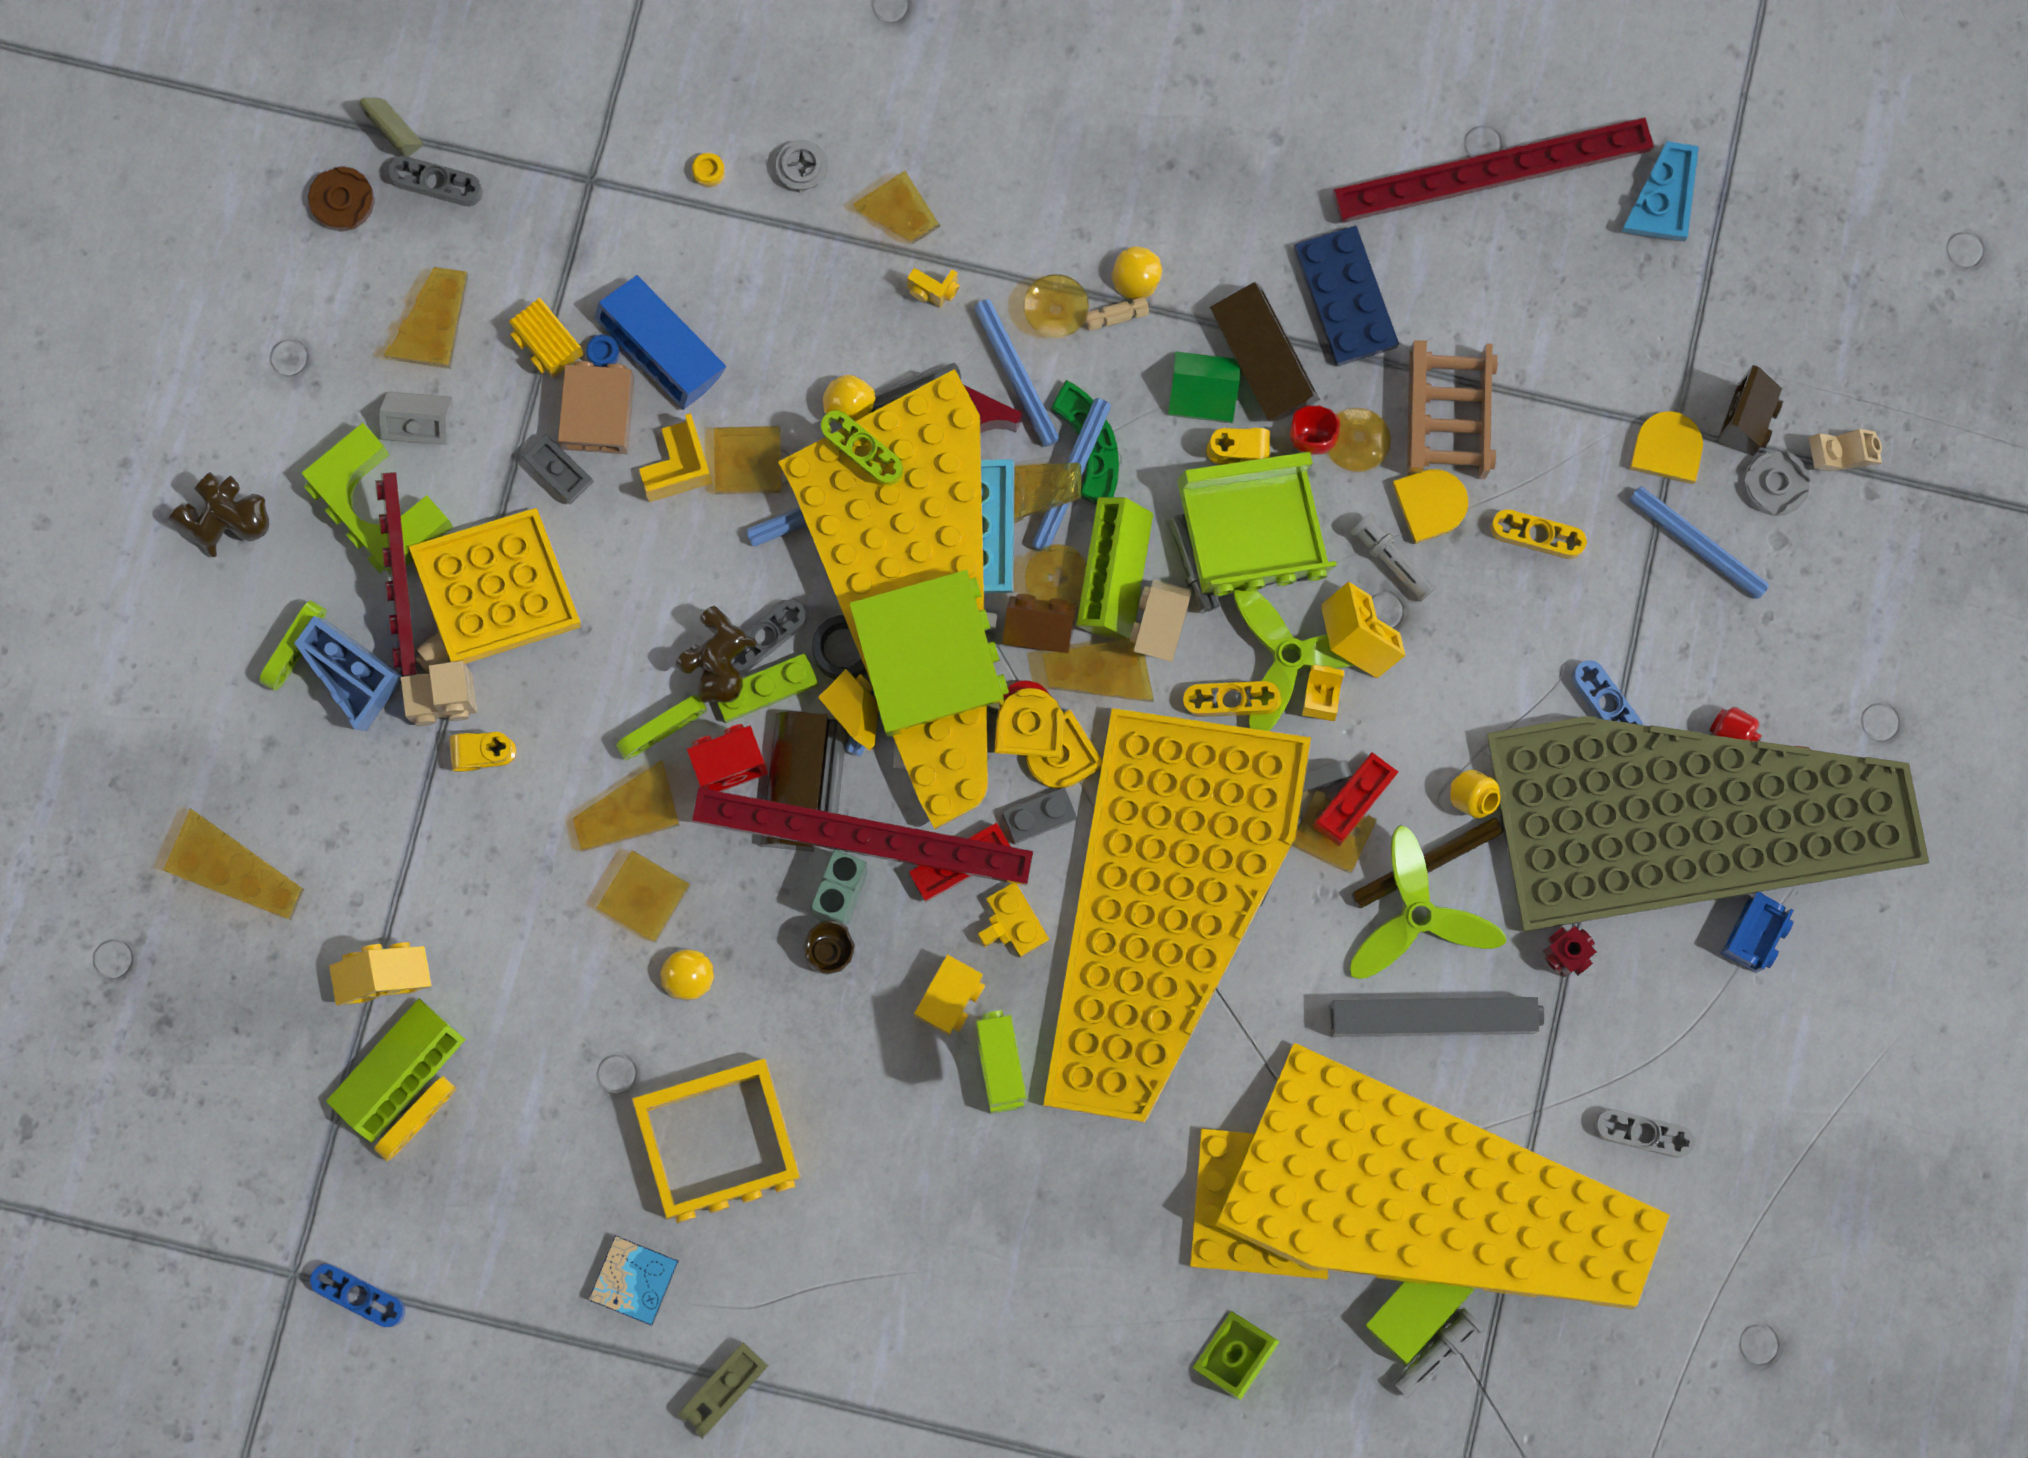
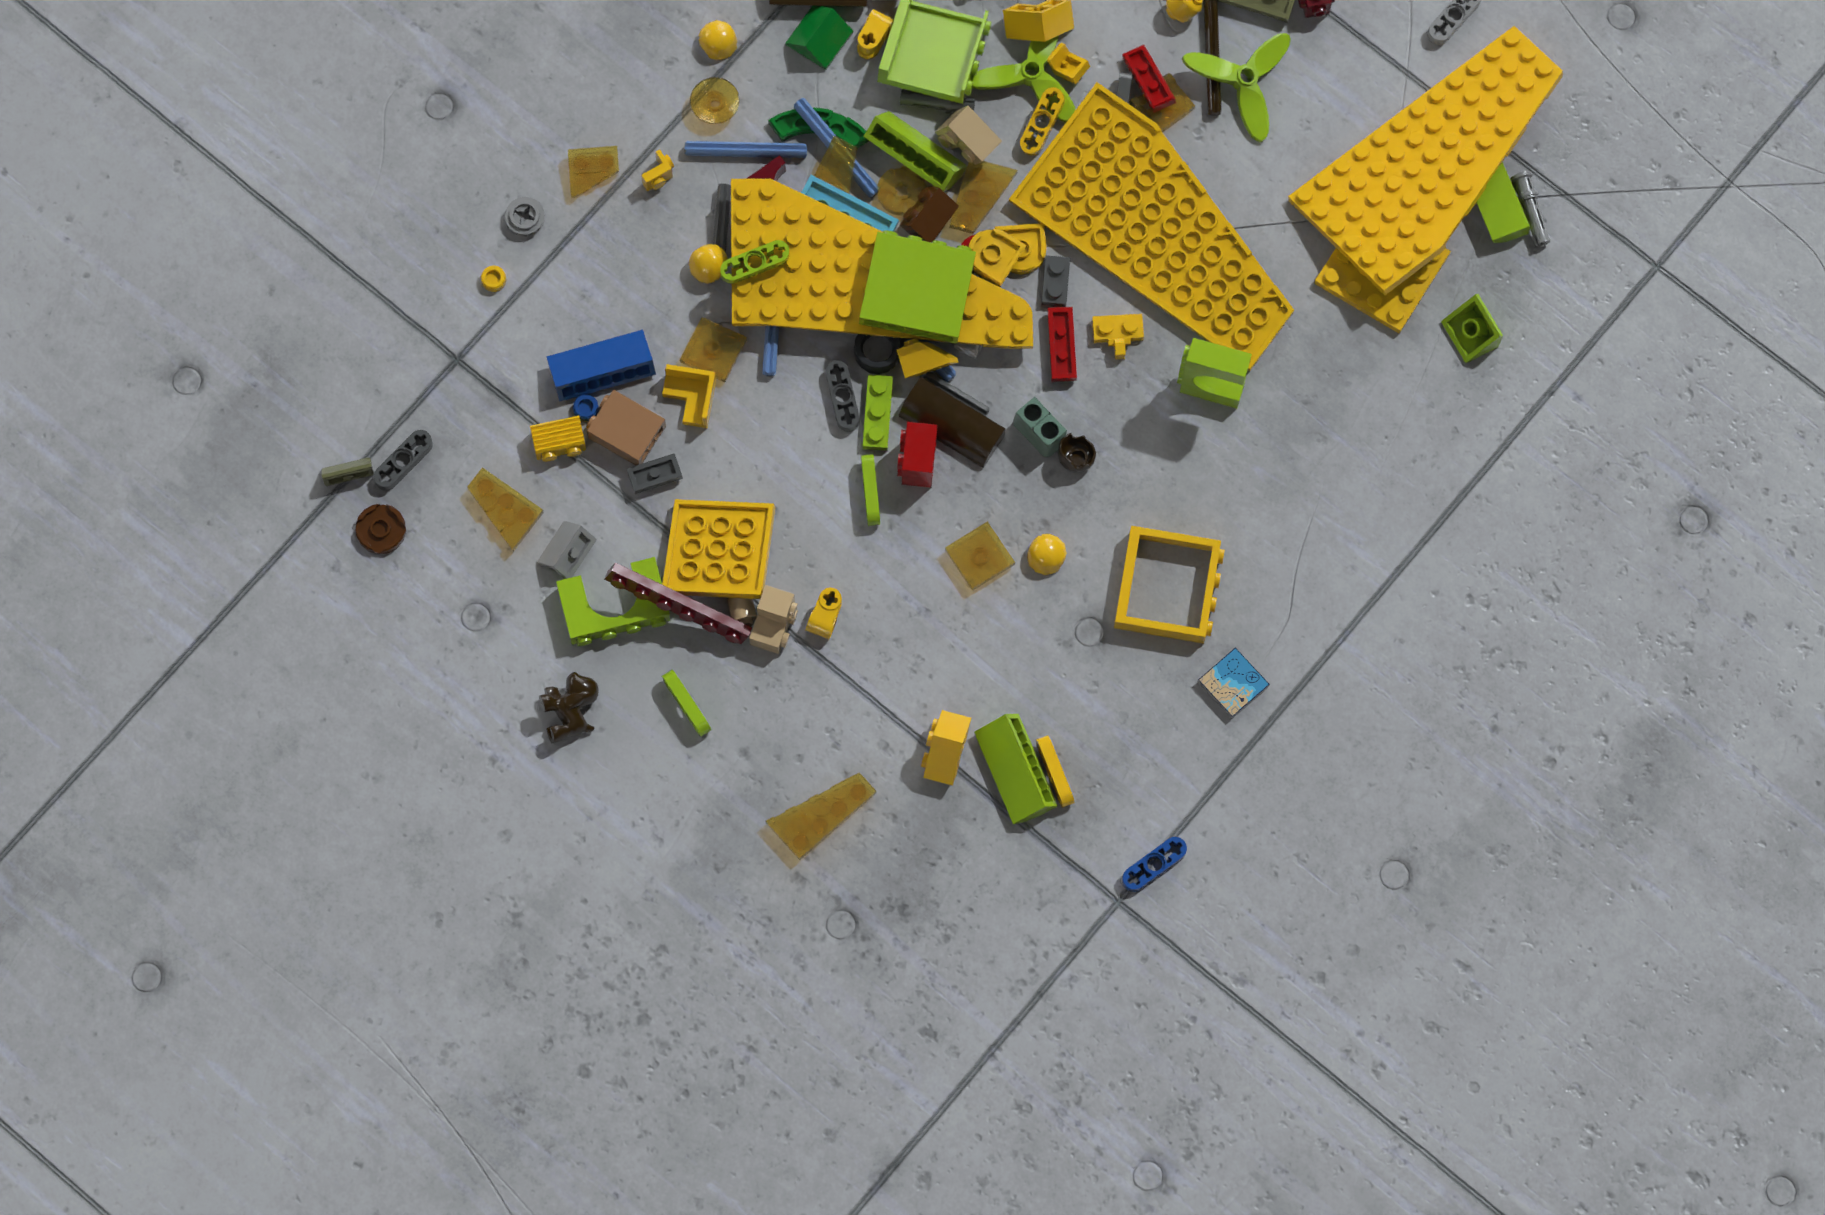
camera: 60 degrees left, 5 degrees down
(350, 671) = (726, 671): medium blue wedge -> none
(629, 812) = (917, 537): clear yellow wing -> none
(720, 679) = (860, 432): dark brown animal -> none
(723, 1389) = (1334, 658): olive plate -> none
(862, 836) = (1015, 392): dark red plate -> none
(949, 996) = (1148, 393): yellow brick -> none
(1117, 313) = (740, 65): tan axle -> none
(1435, 1017) = (1316, 102): dark grey brick -> none

